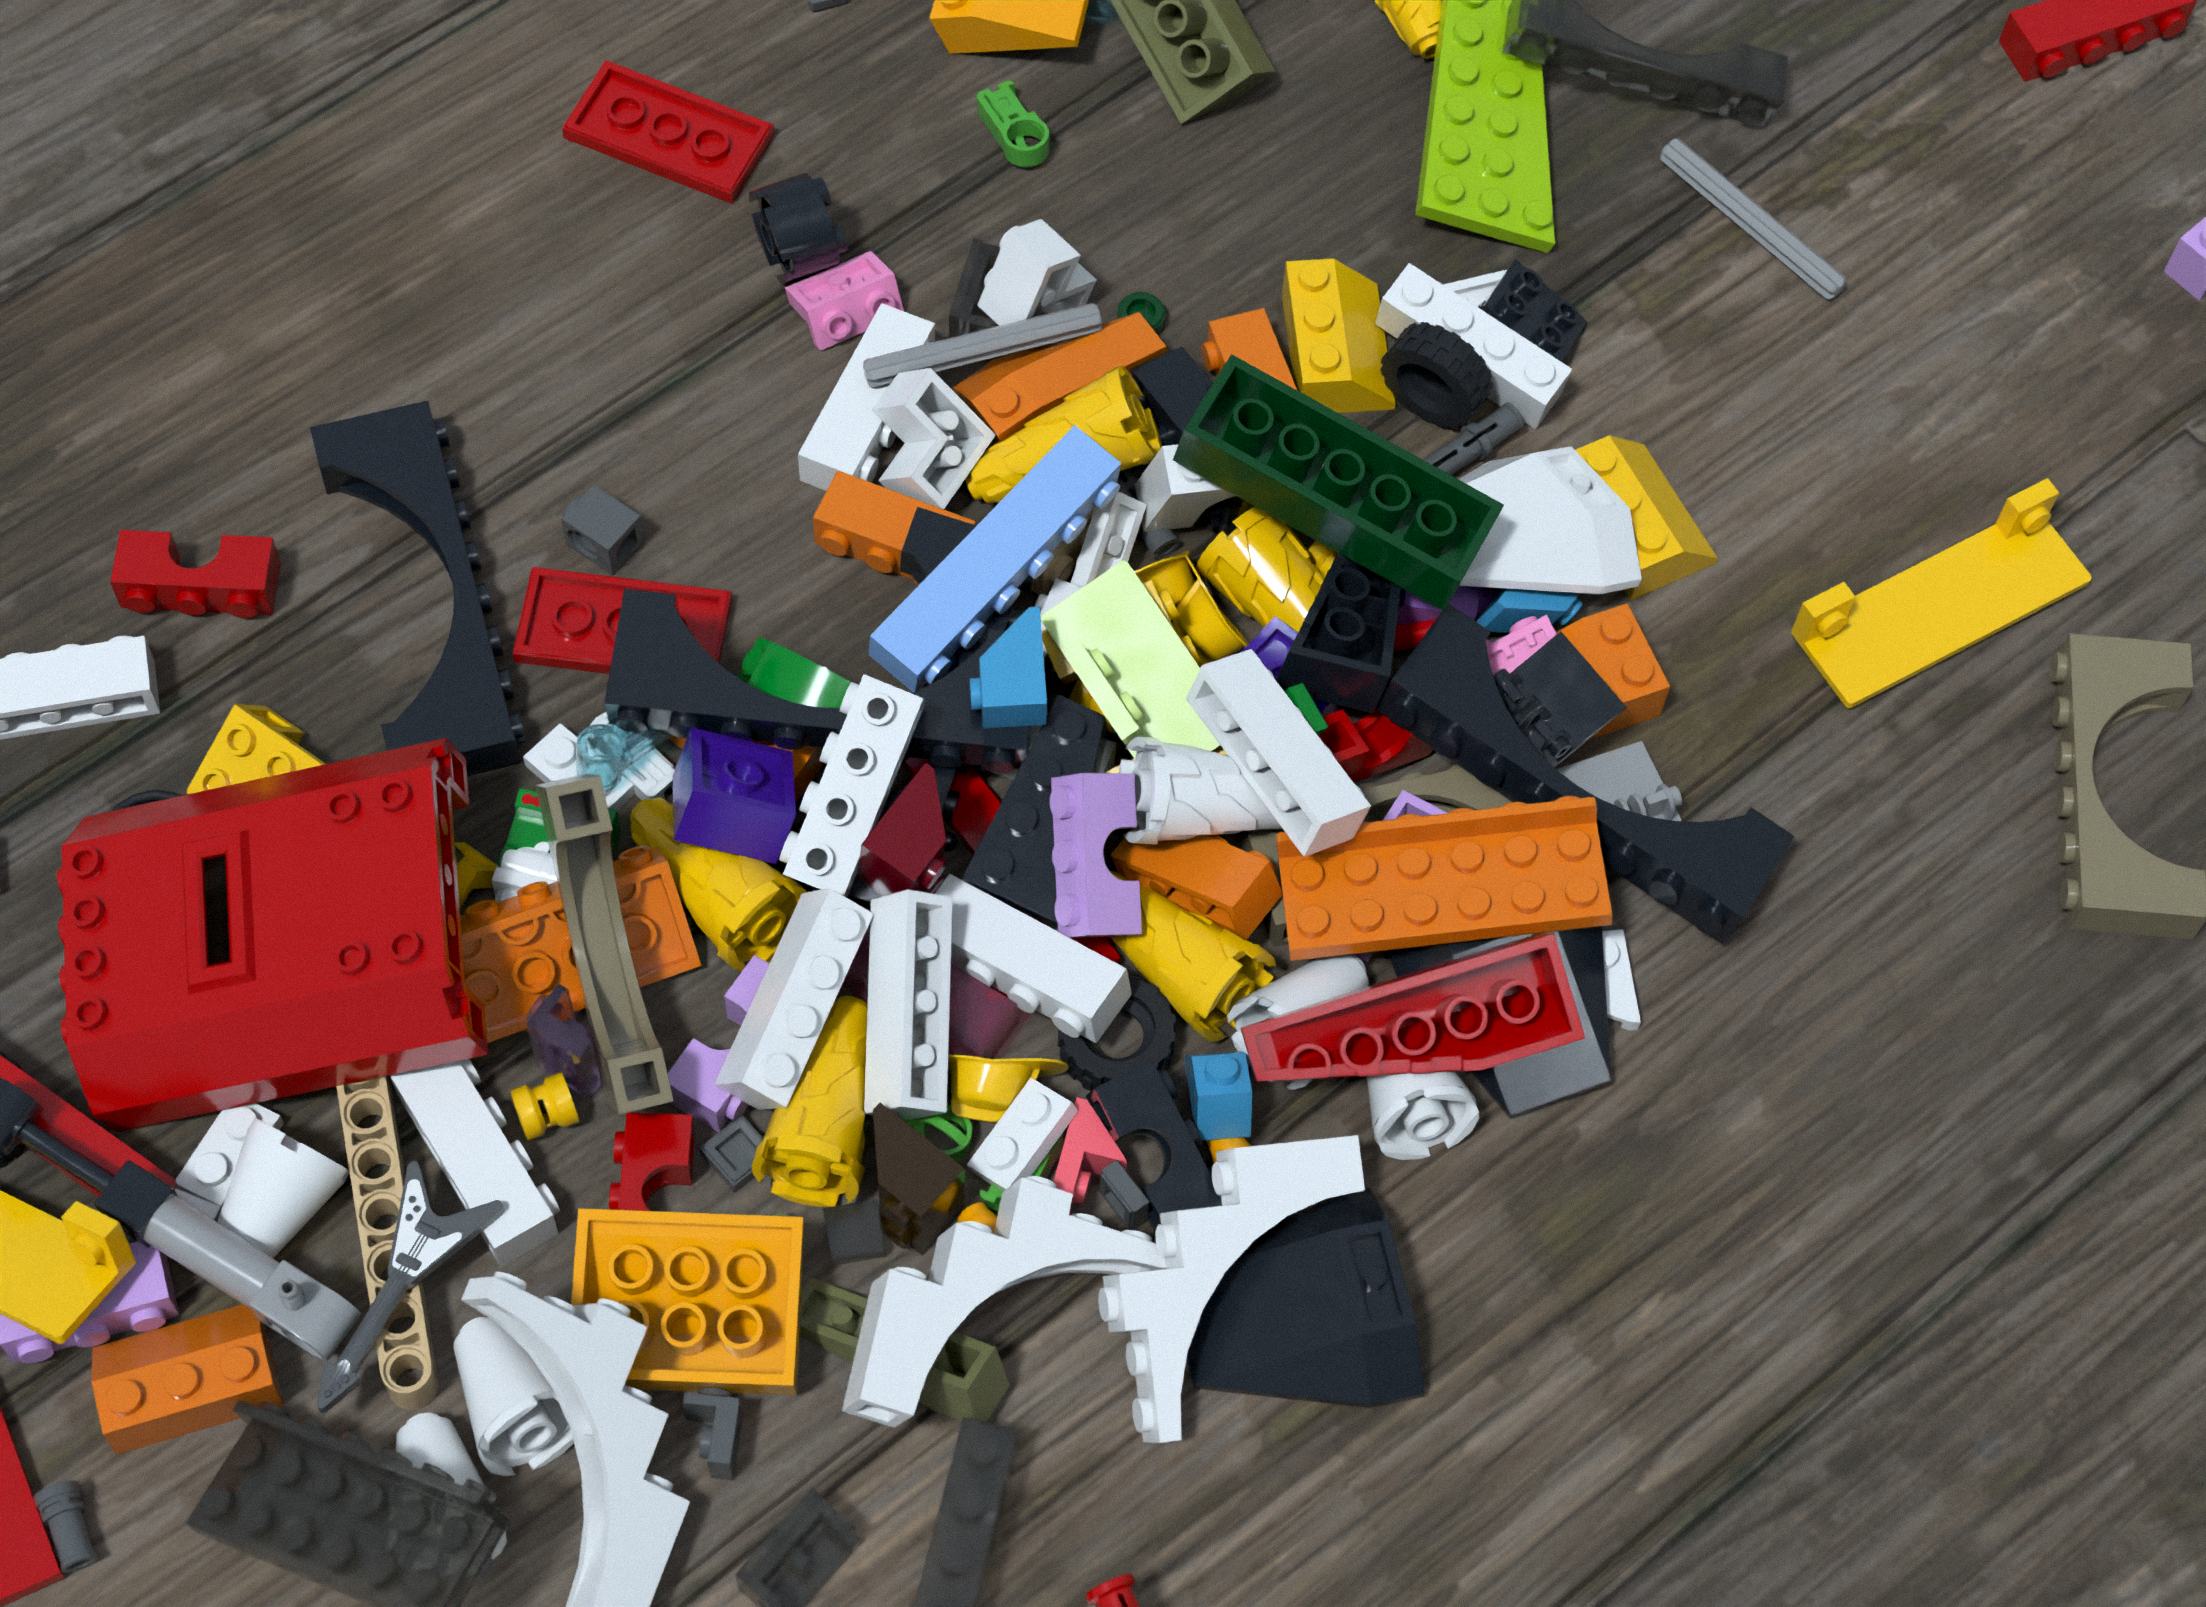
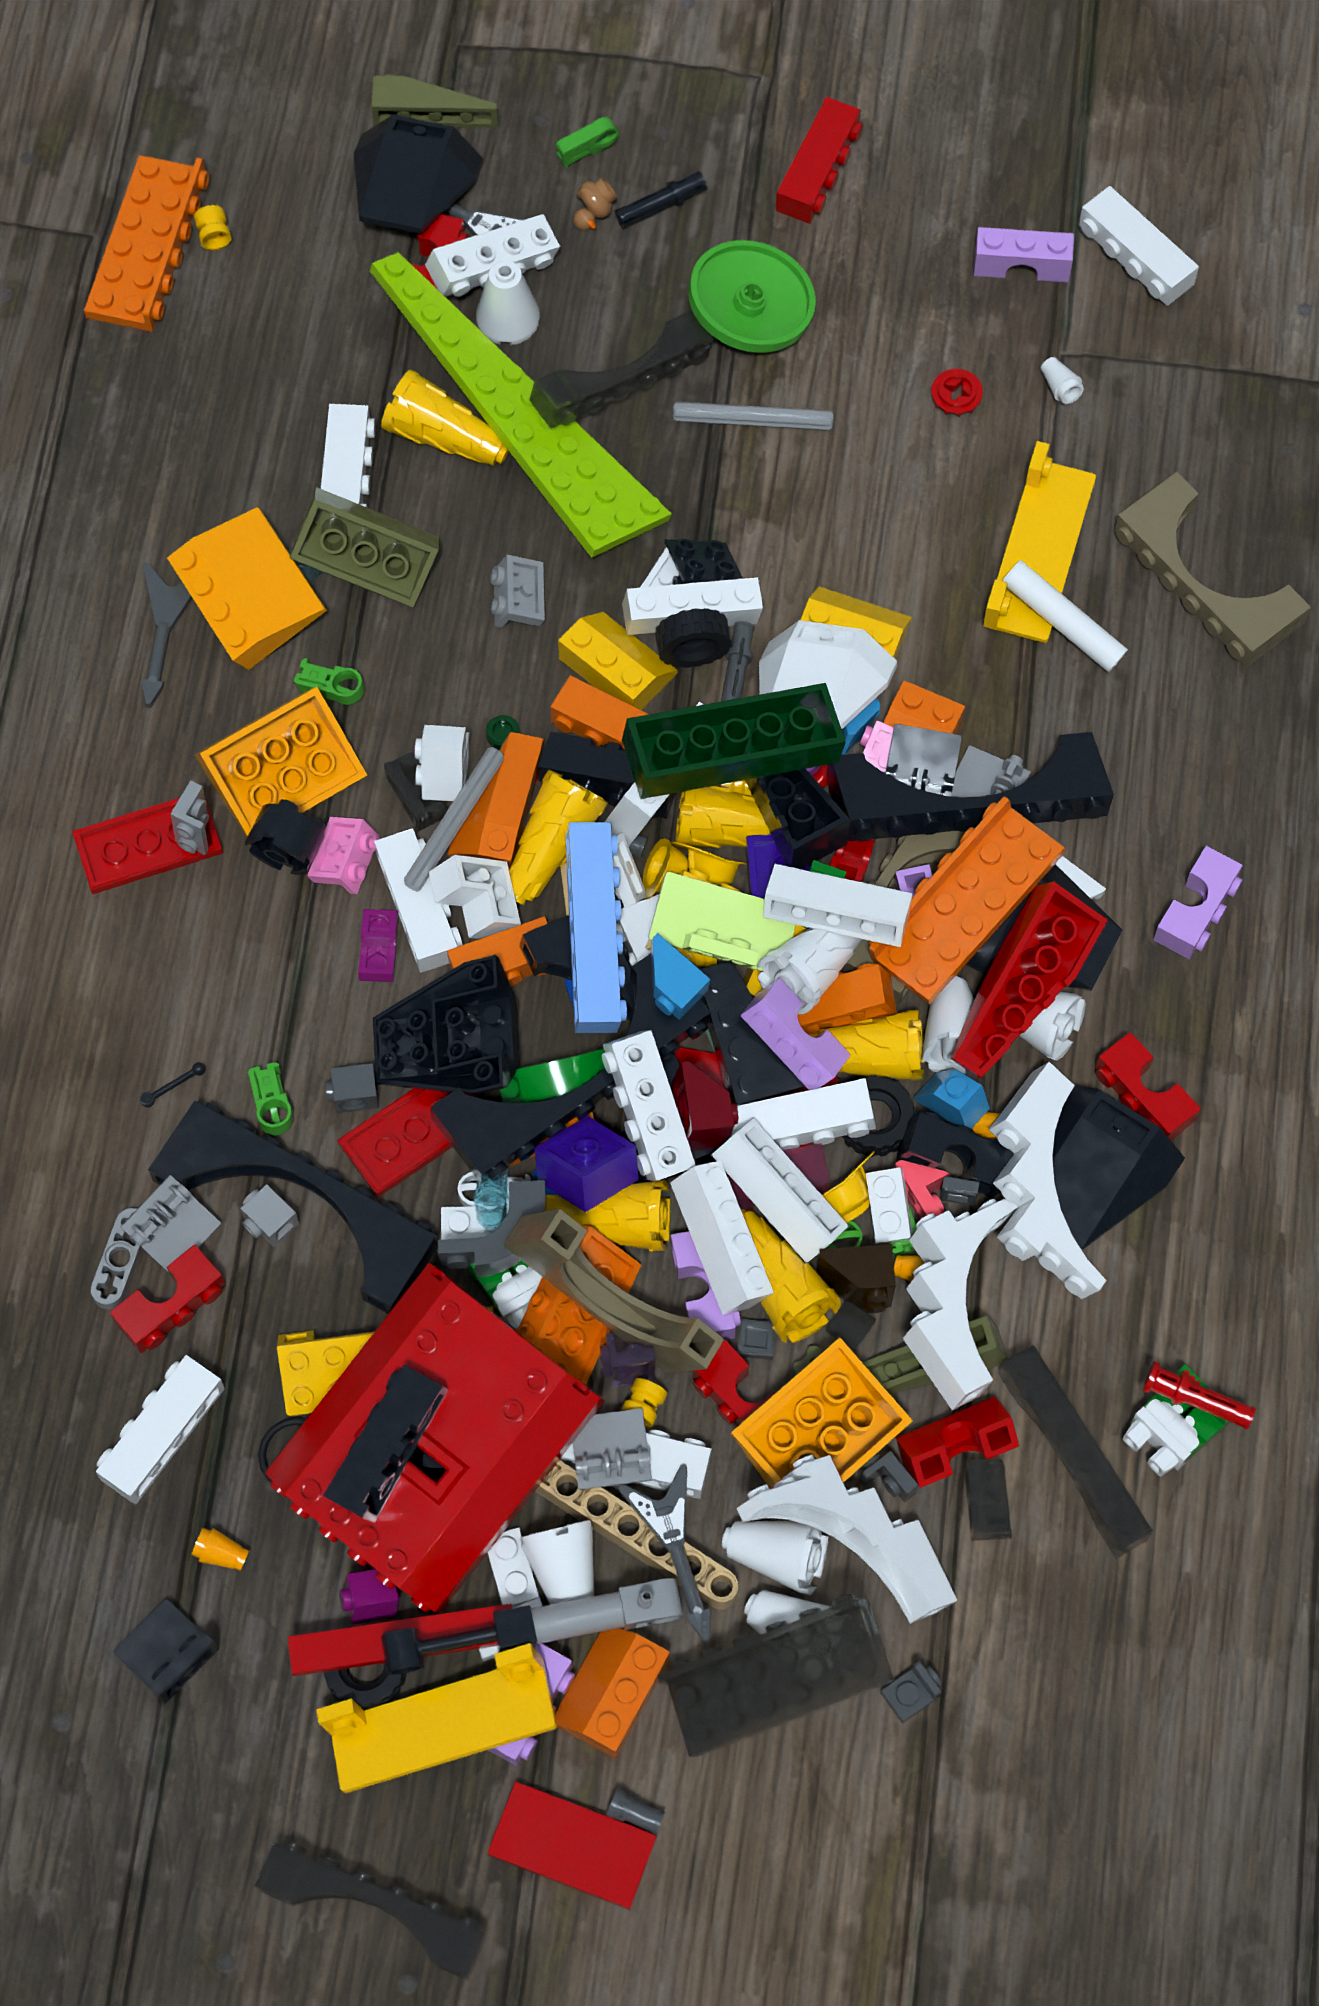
camera: 40 degrees left, 5 degrees up
(39, 1040) = (367, 1597): none -> magenta brick
(182, 872) = (386, 1443): none -> black wedge
(208, 477) = (102, 1278): none -> light grey beam
(277, 498) = (170, 1222): none -> light grey hinge
(380, 579) = (268, 1216): none -> light grey brick
(398, 372) = (147, 1099): none -> black hinge
(443, 1116) = (612, 1450): none -> light grey hinge
(515, 465) = (269, 1095): none -> bright green piece
(631, 782) = (488, 1251): none -> dark grey arch
(718, 126) = (190, 820): none -> light grey bracket
(755, 556) = (451, 1033): none -> black wedge
(782, 419) = (378, 945): none -> magenta slope
(794, 1441) = (979, 1428): none -> red arch
(886, 155) = (284, 755): none -> light orange slope
(1306, 192) = (518, 591): none -> light grey bracket
(1453, 1323) = (1122, 1068): none -> red arch
(1695, 1146) = (1185, 926): none -> lavender arch
(1872, 94) = (751, 296): none -> bright green dish
(1893, 692) = (1065, 616): none -> white piece
(2020, 355) = (949, 382): none -> red gear
(2153, 452) = (1062, 381): none -> white cone

